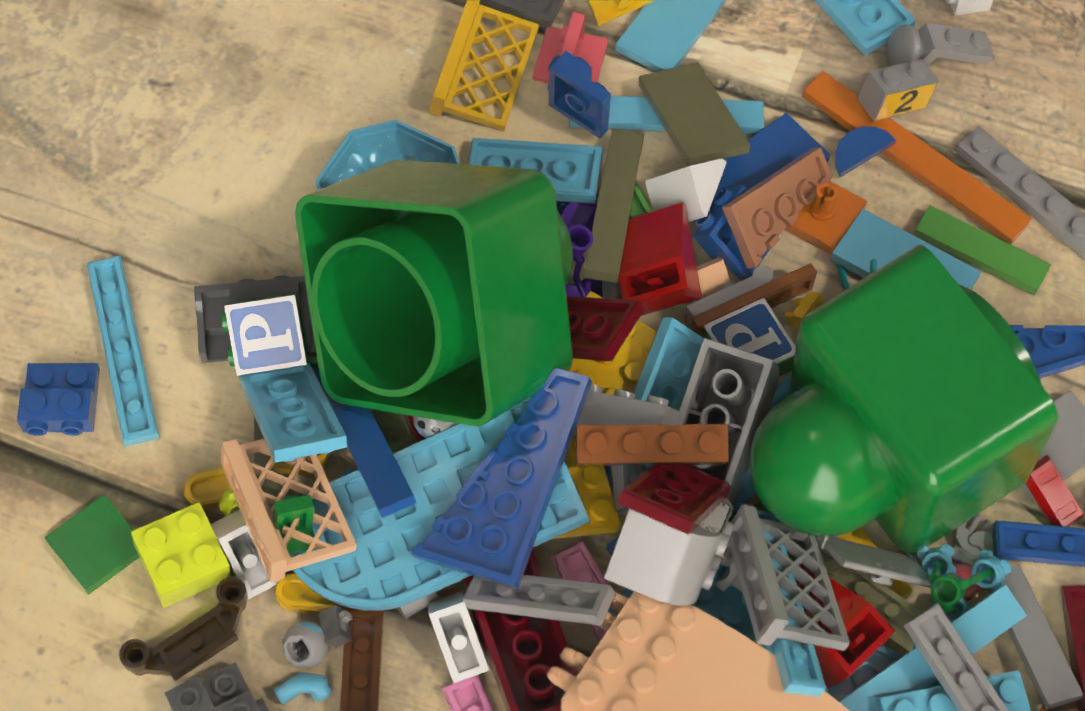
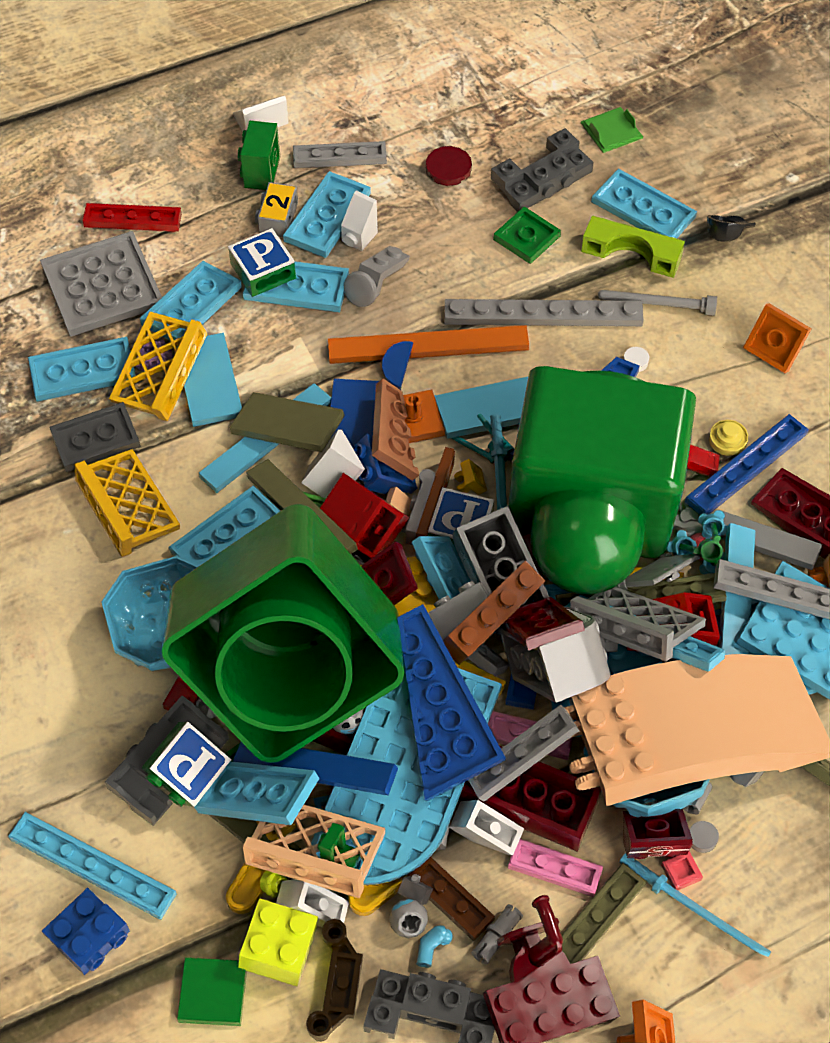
camera: 45 degrees left, 5 degrees down
(573, 40) = (173, 451): coral bracket -> none
(576, 95) = (212, 466): blue plate -> none
(897, 89) = (383, 313): light grey brick -> none
(982, 250) = (517, 364): bright green tile -> none

